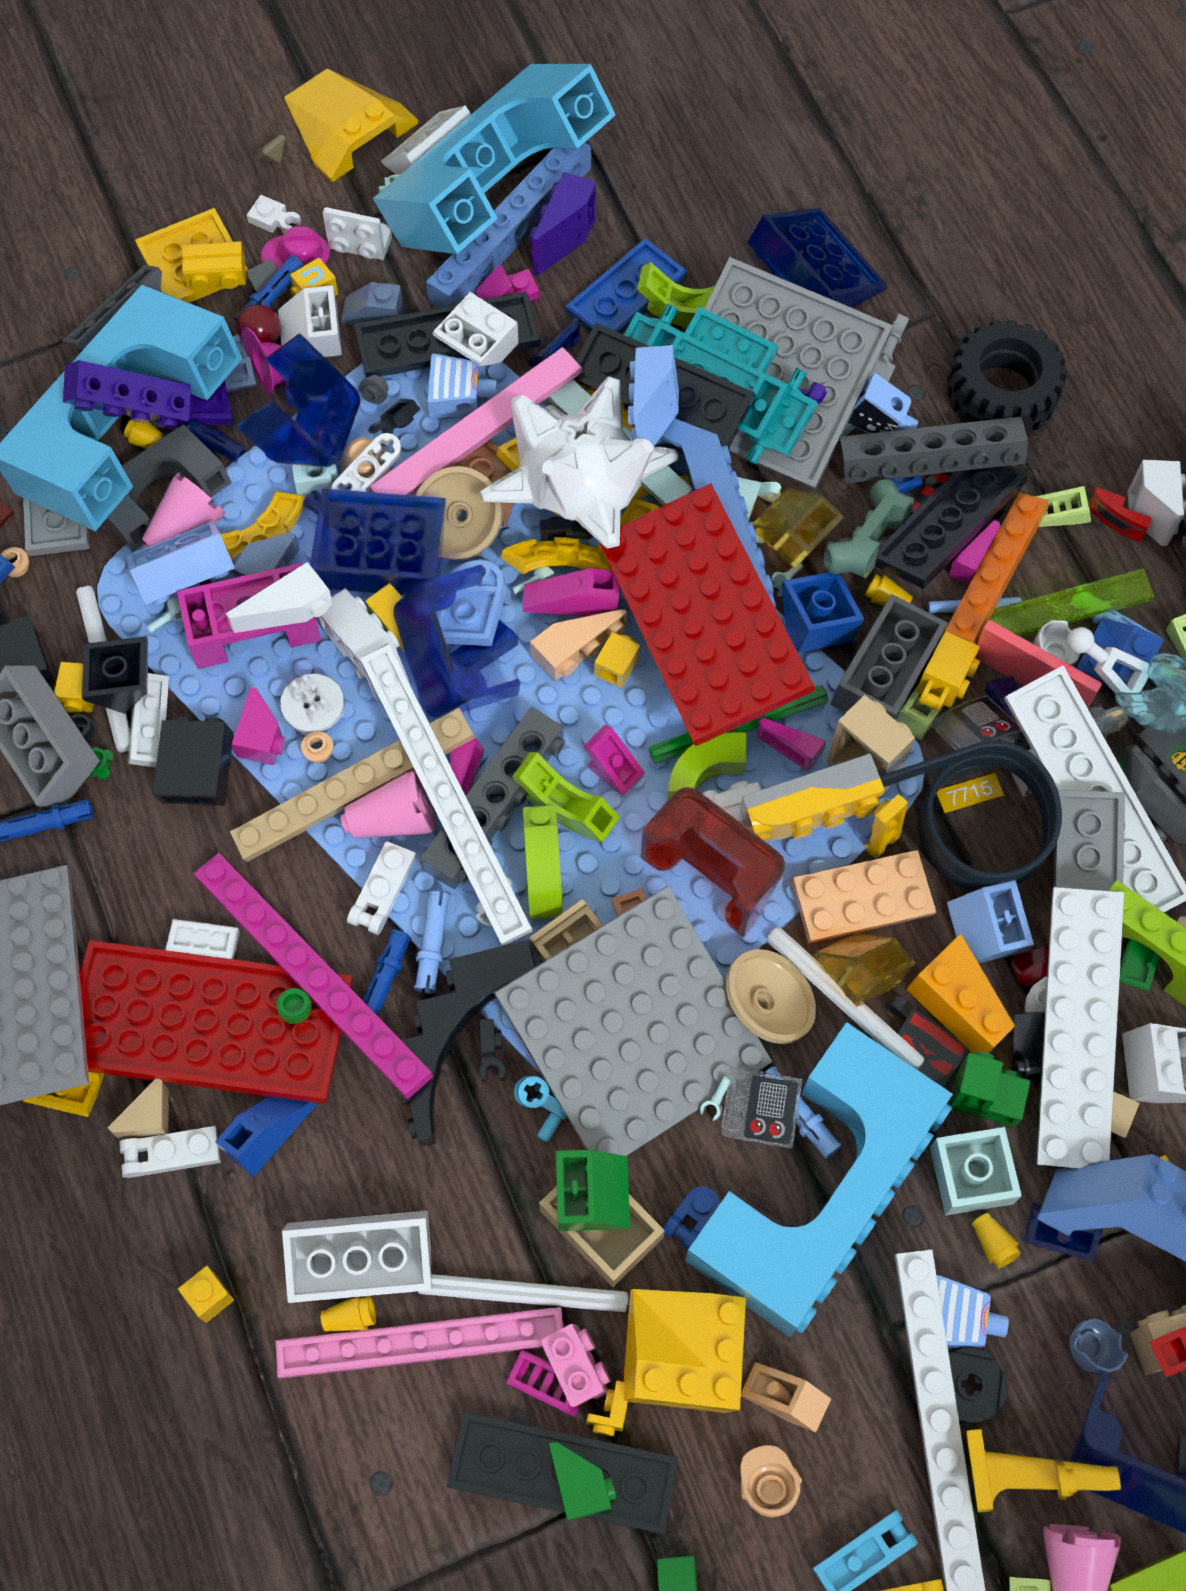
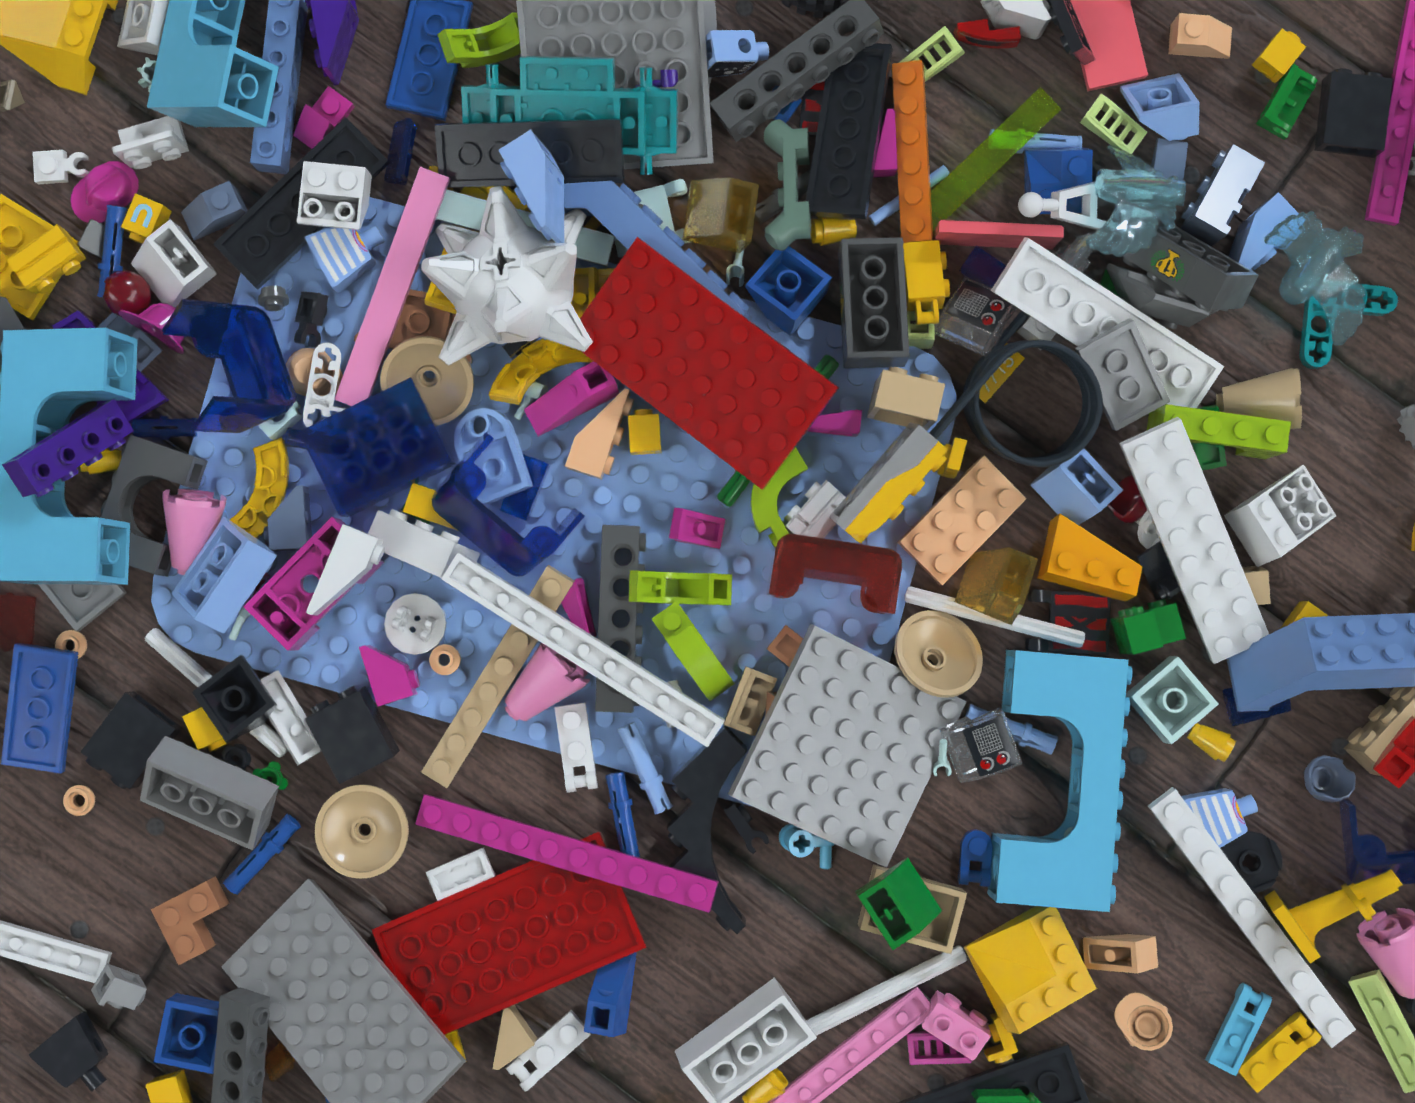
camera: 30 degrees left, 20 degrees up
(137, 829) = (340, 834): none -> tan dish
(294, 1005) = (571, 887): green tile -> none
(1053, 639) = (1000, 198): white hair -> none

